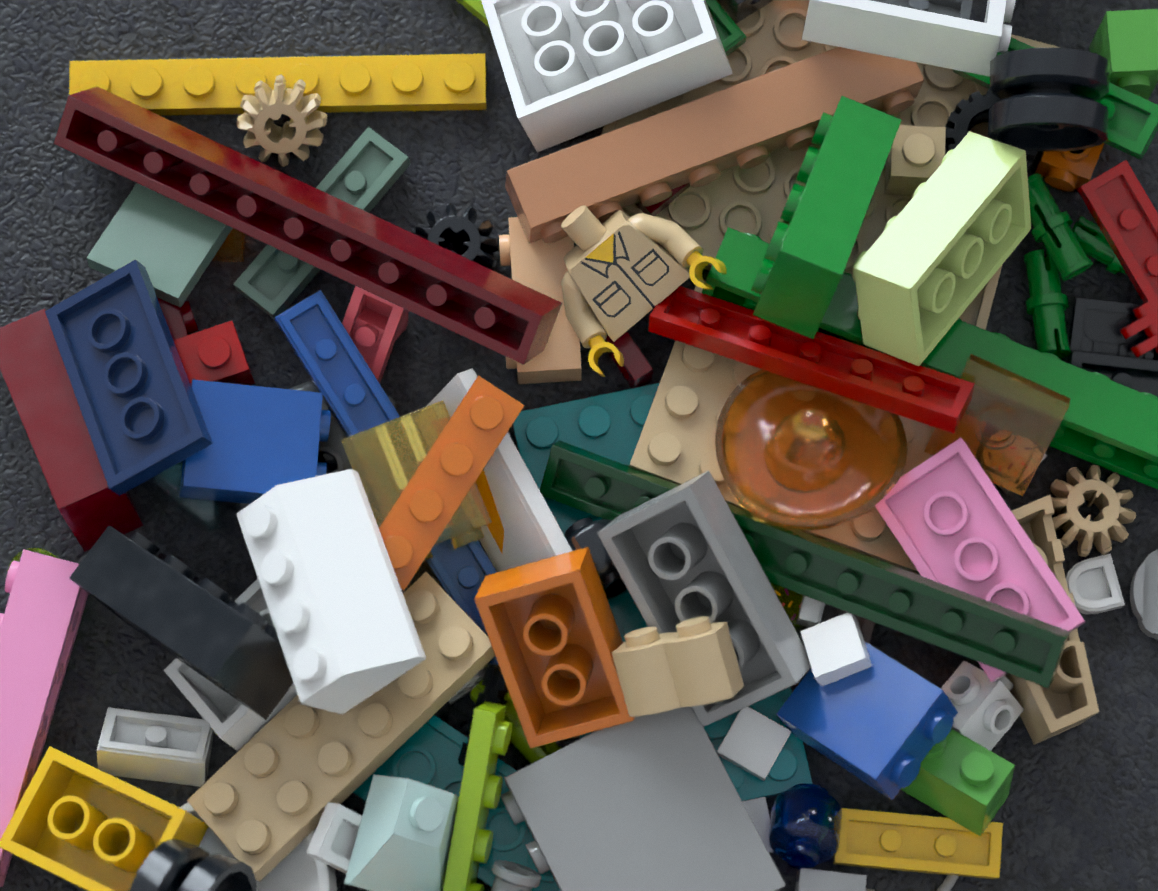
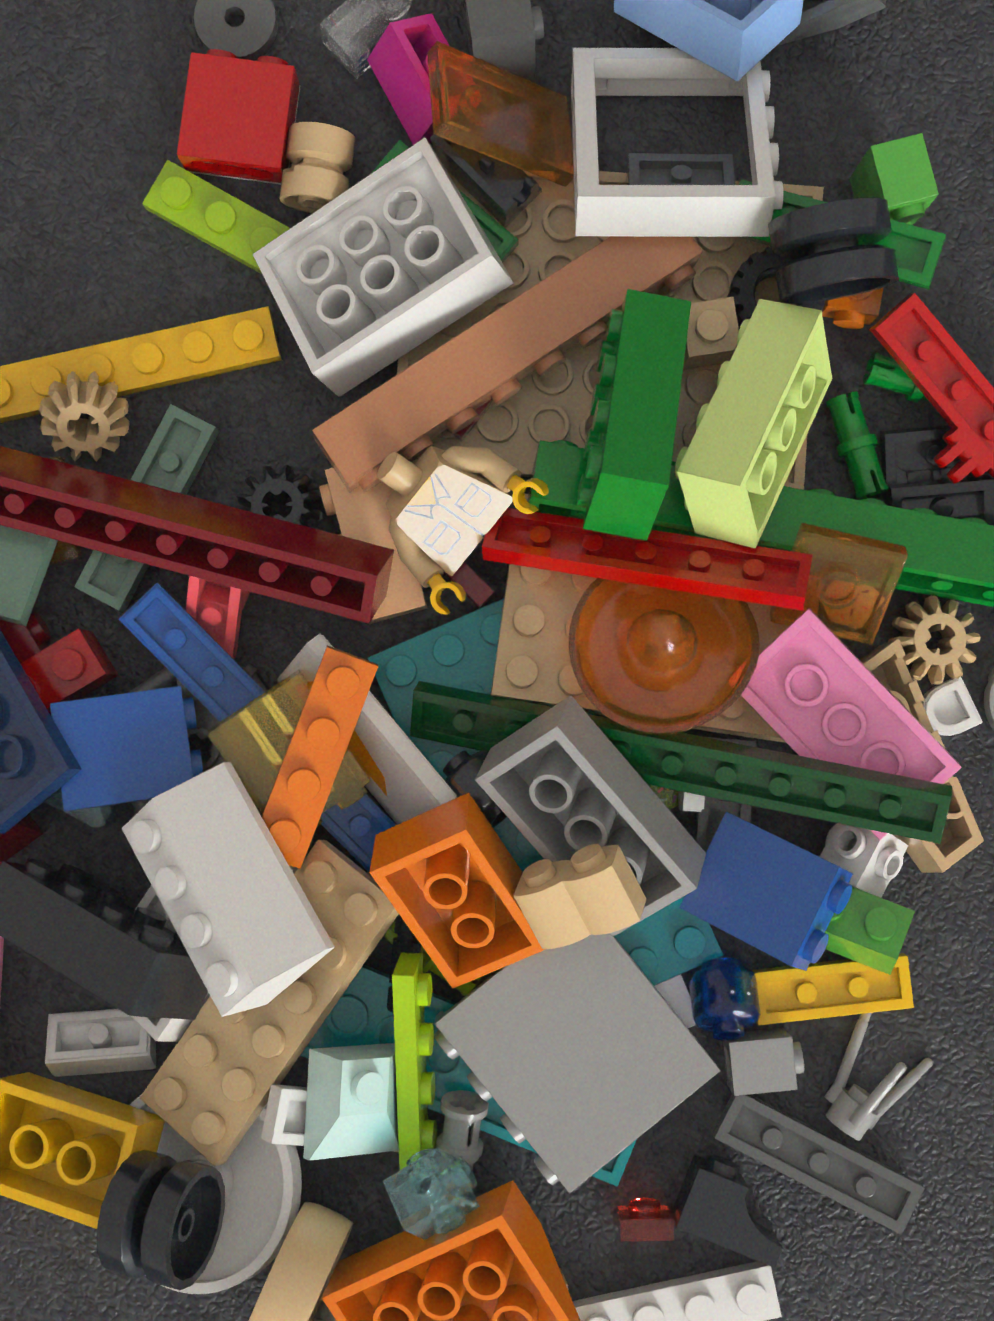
camera: 15 degrees left, 10 degrees up
(753, 742) = (663, 934): white tile -> none
(836, 648) = (725, 837): white tile -> none
(1054, 232) = (855, 376): green pin -> none

